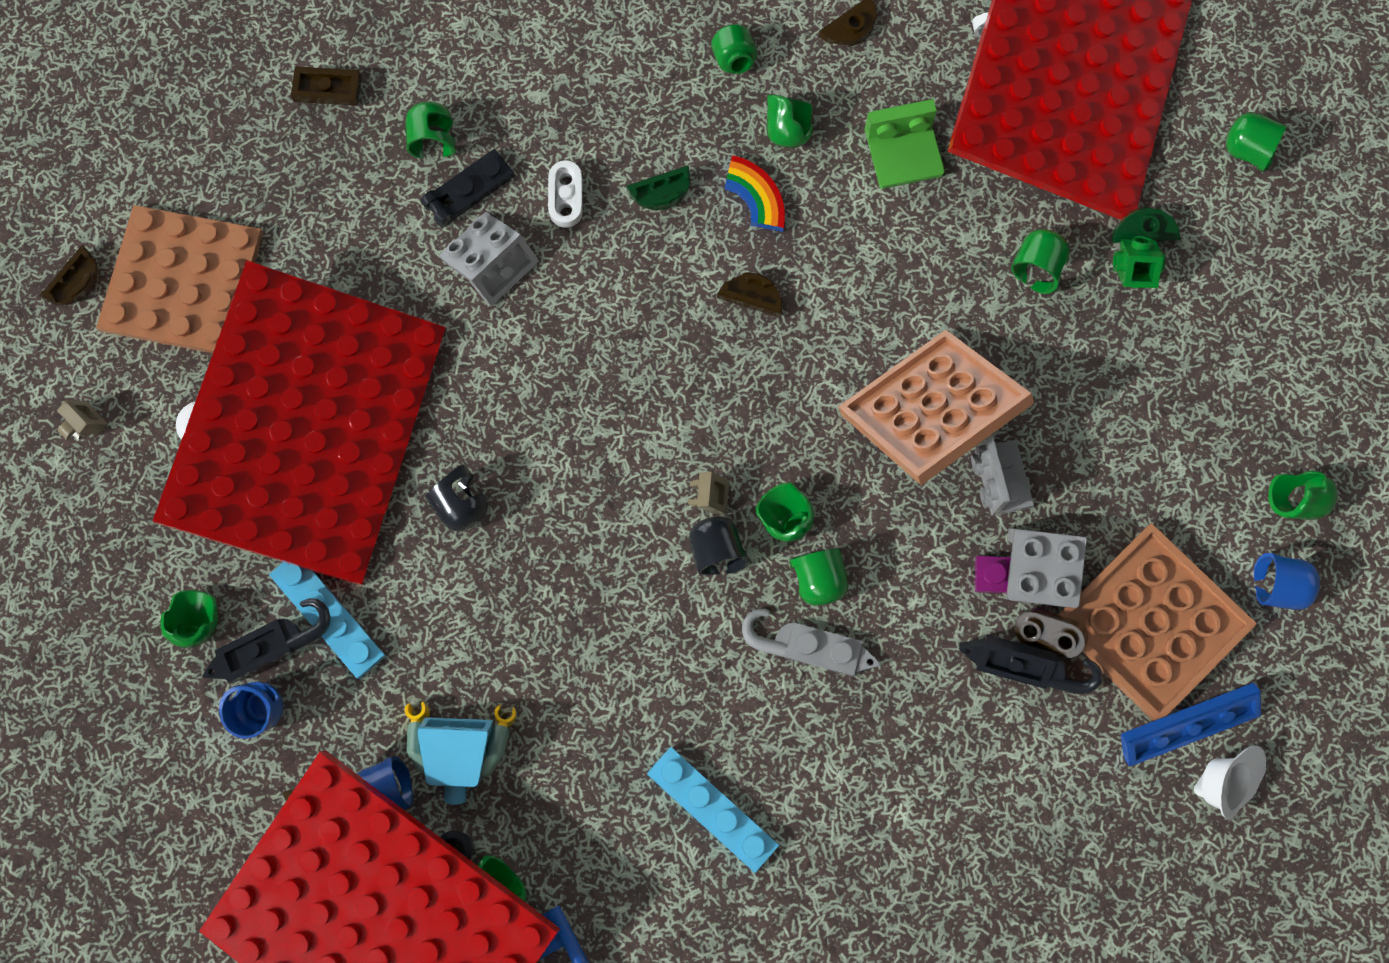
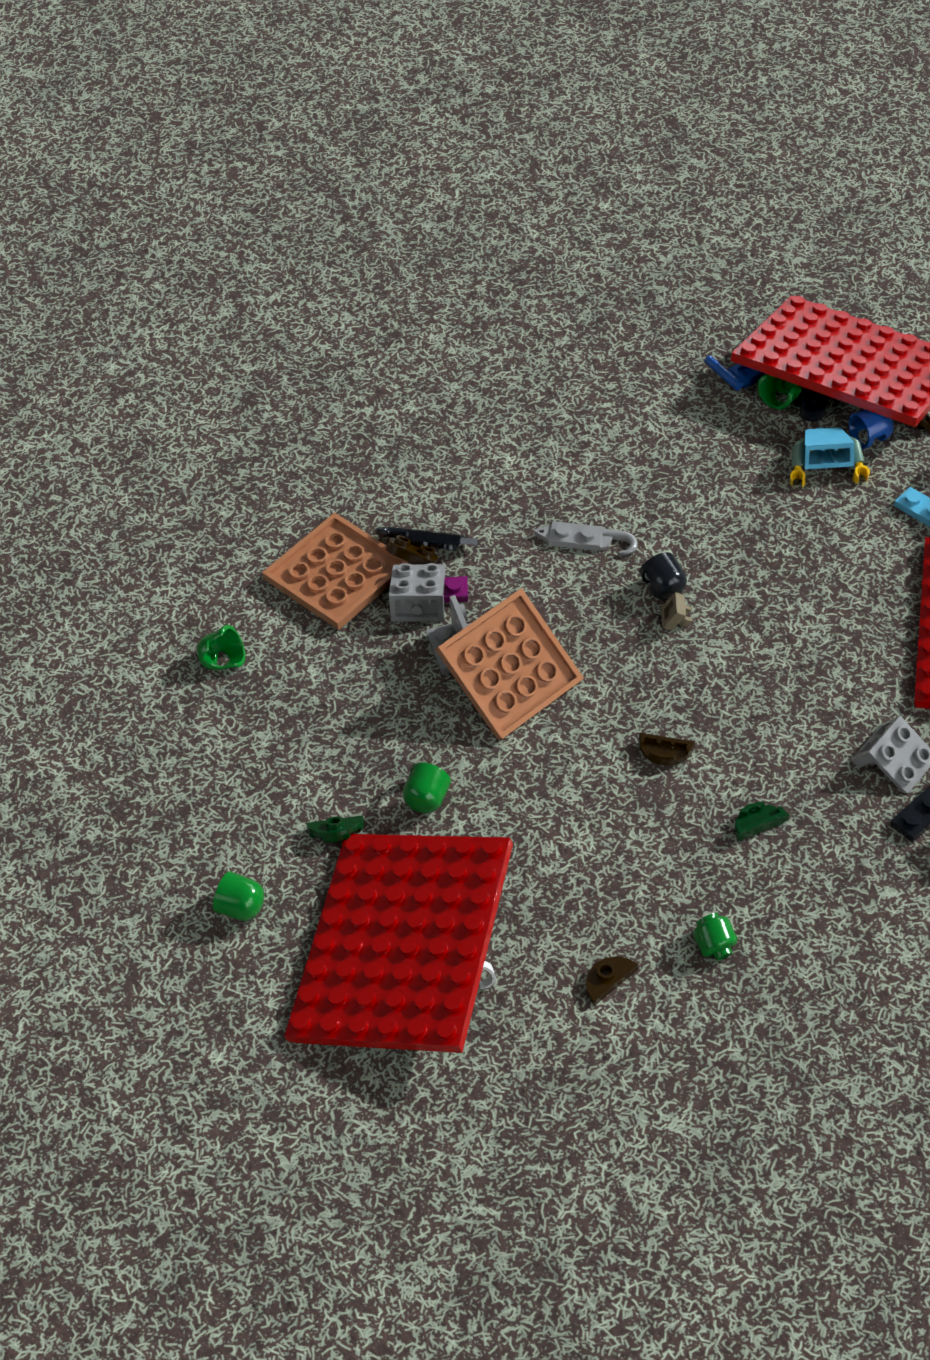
camera: 175 degrees right, 25 degrees down
(454, 512) = (868, 576): black helmet -> none
(565, 196) = (841, 809): white plate -> none
(712, 809) = (641, 447): medium azure plate -> none
(758, 192) = (673, 828): tile -> none
(785, 513) = (616, 597): green hair -> none
(788, 121) = (654, 869): green hair -> none
(821, 577) = (584, 559): green helmet -> none
(904, 144) = (549, 871): bright green bracket -> none
(1139, 262) = (344, 781): green brick -> none
(1191, 724) = (311, 515): blue tile -> none
(1232, 781) = (290, 487): white piece -> none
(1295, 582) = (238, 590): blue helmet -> none

